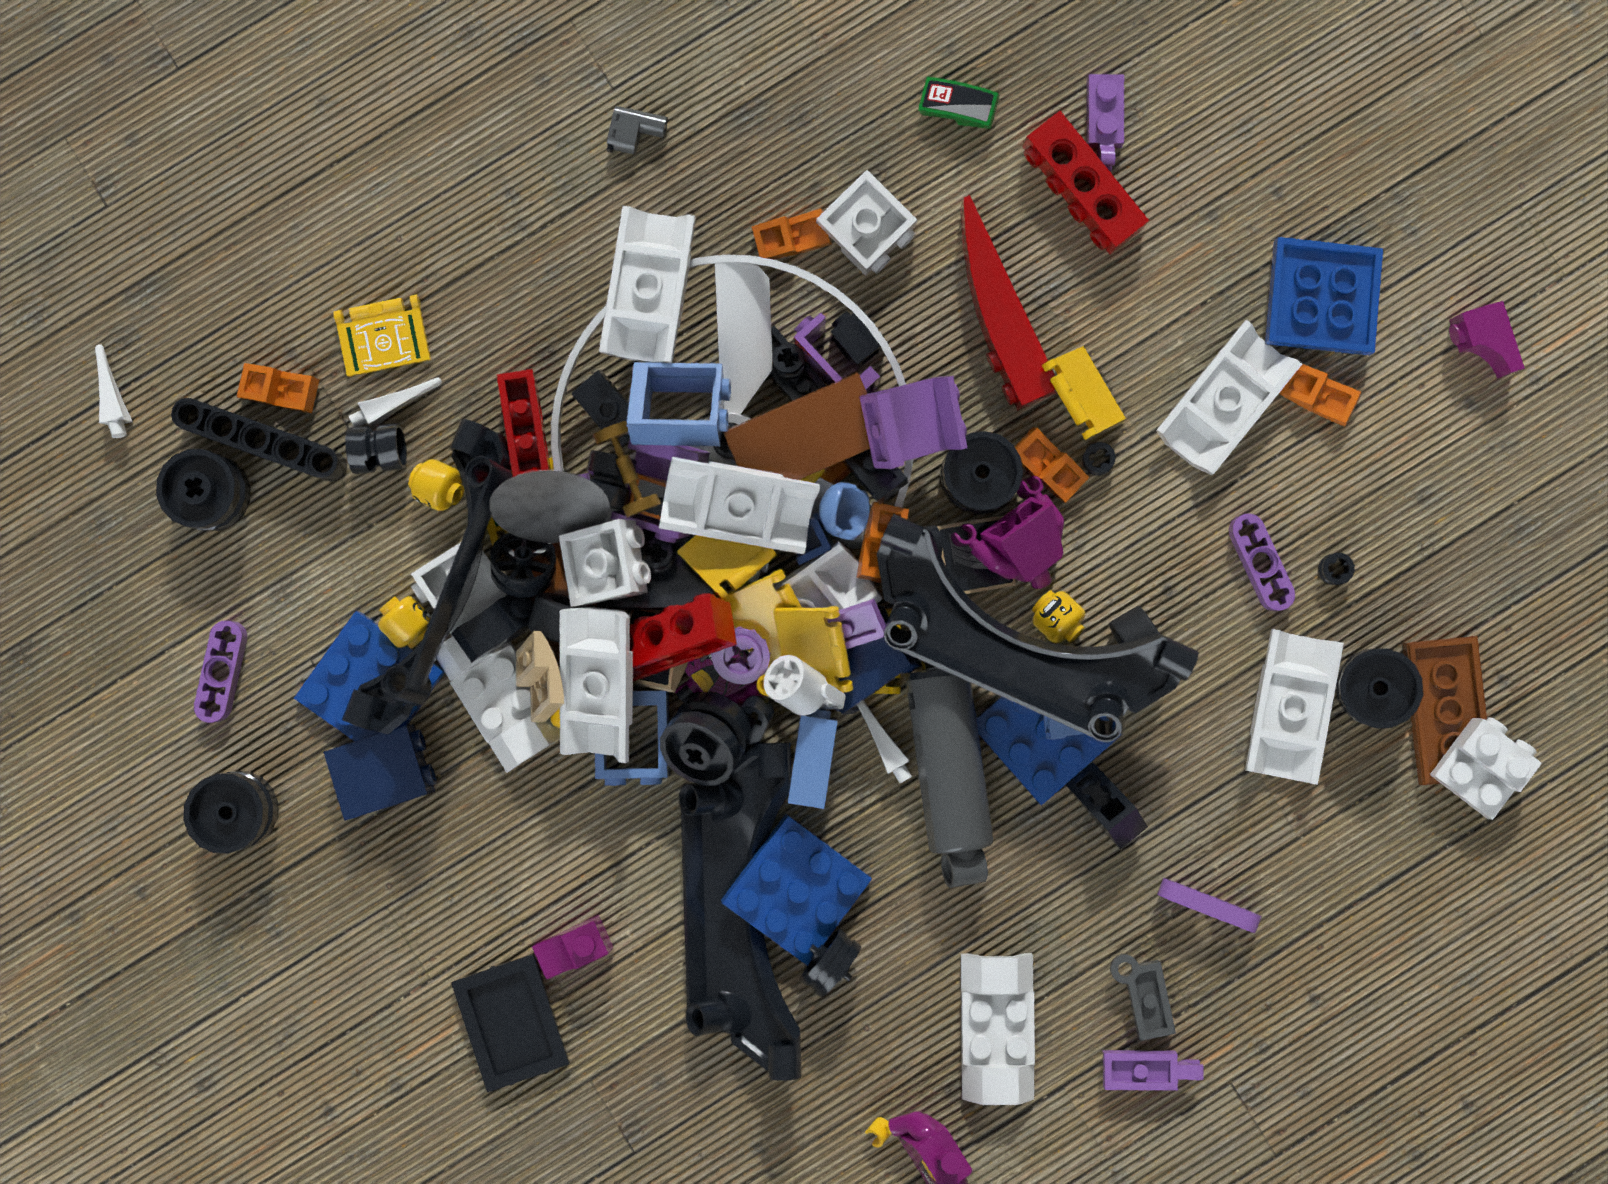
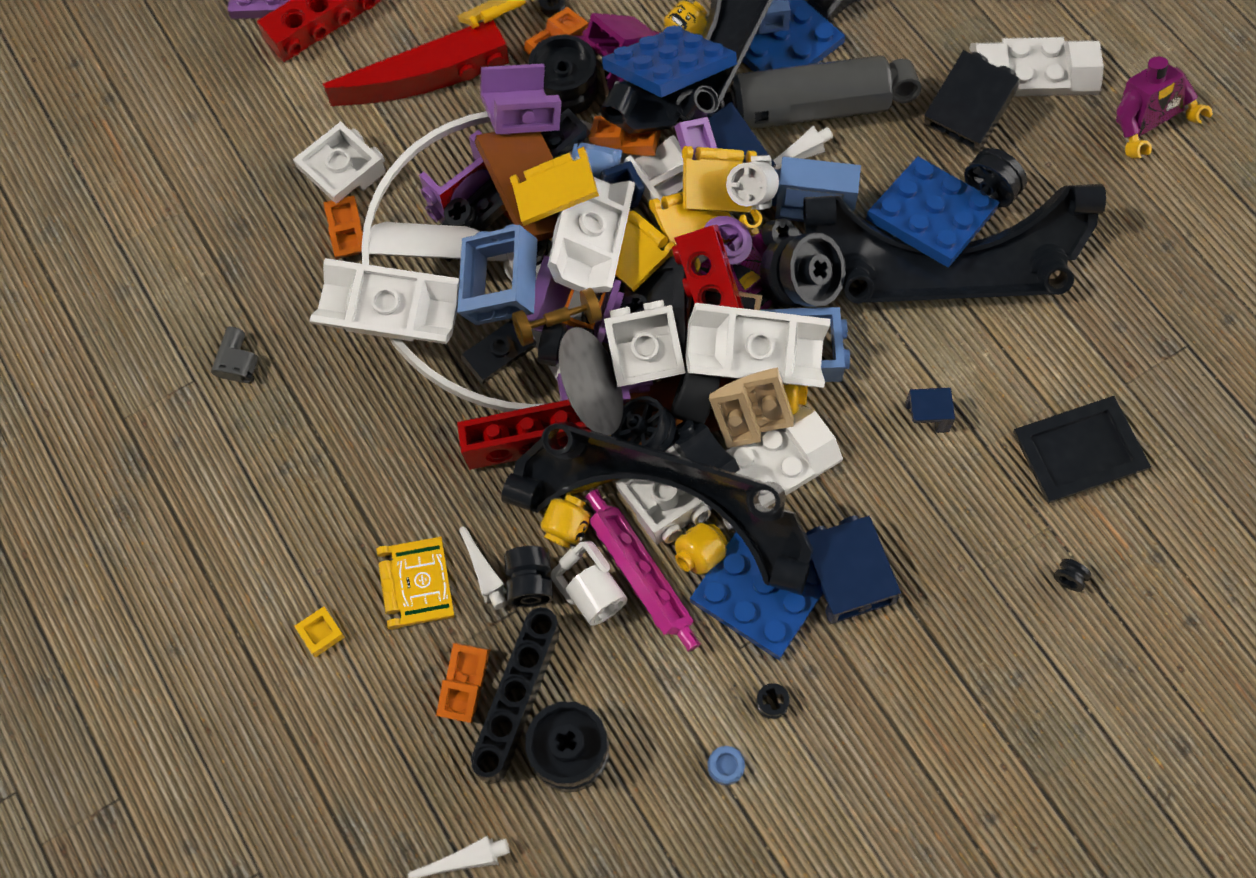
camera: 90 degrees left, 20 degrees down
(191, 642) = (726, 765): none -> medium blue tile
(210, 817) = (910, 690): black wheel -> none
(223, 699) = (767, 724): medium lavender beam -> none
(244, 682) = (779, 692): none -> black bush
(332, 244) = (319, 631): none -> yellow tile
(358, 513) = (591, 590): none -> white piece
(370, 996) = (1072, 575): none -> black bush
(383, 561) = (641, 571): none -> dark pink plate
(553, 867) = (932, 406): none -> dark blue panel
(573, 947) = (1003, 391): magenta arch -> none
(776, 462) = (554, 186): none -> yellow piece
(854, 340) = (441, 165): black brick -> none
(935, 946) = (972, 100): none -> black brick
(958, 101) = (238, 103): slope -> none
(961, 593) = (669, 60): none -> blue plate

